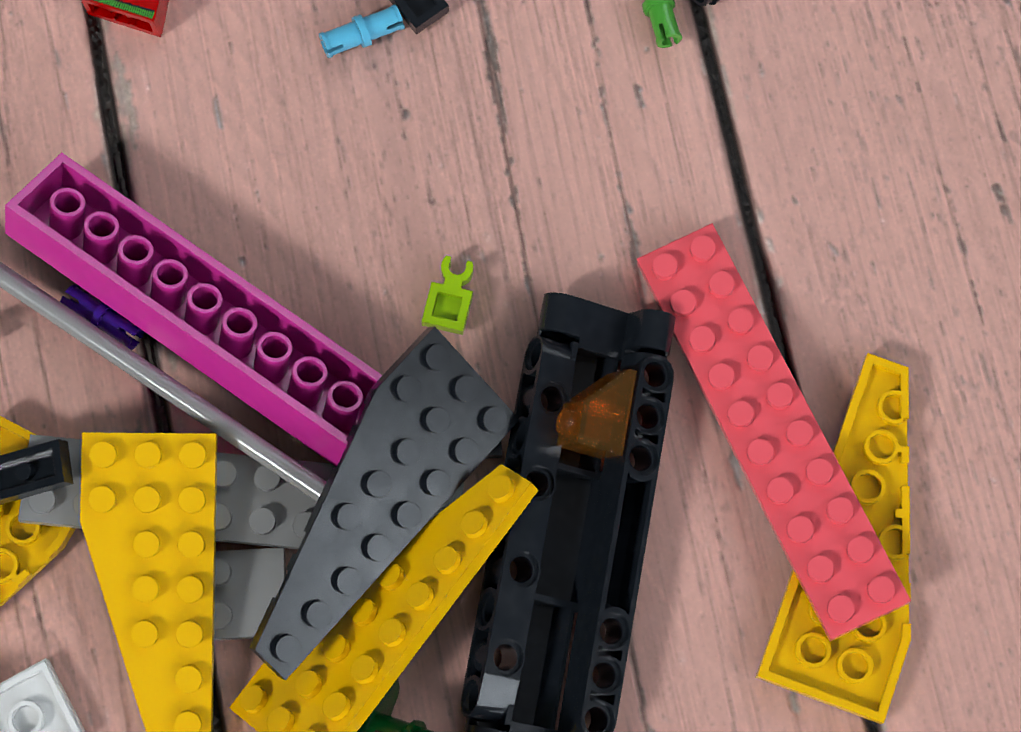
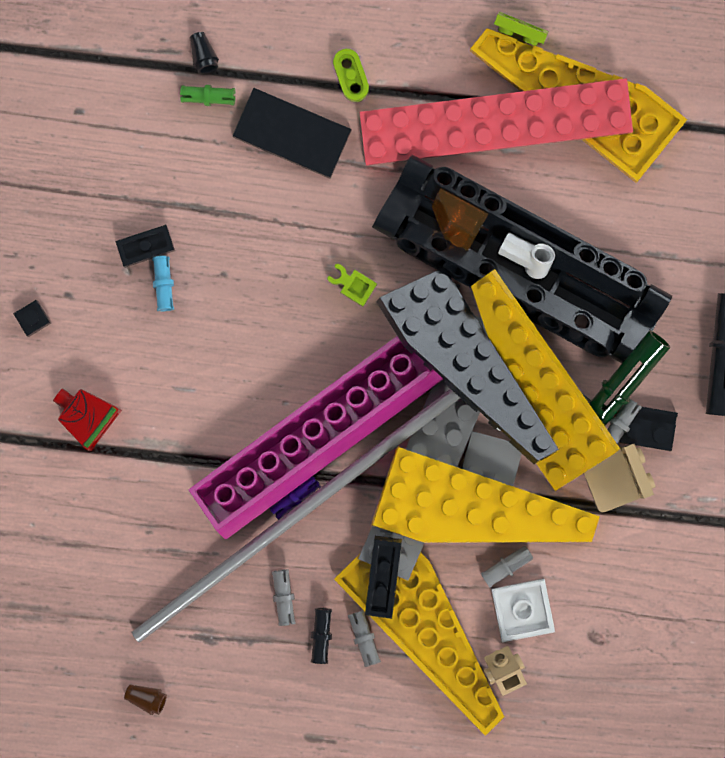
camera: 65 degrees left, 10 degrees up
(87, 670) = (507, 566): none -> light grey axle
(580, 536) = (535, 258): none -> white piece
(646, 141) = (292, 133): none -> black tile
(760, 196) = (351, 76): none -> lime plate
(927, 401) = (510, 25): none -> lime plate

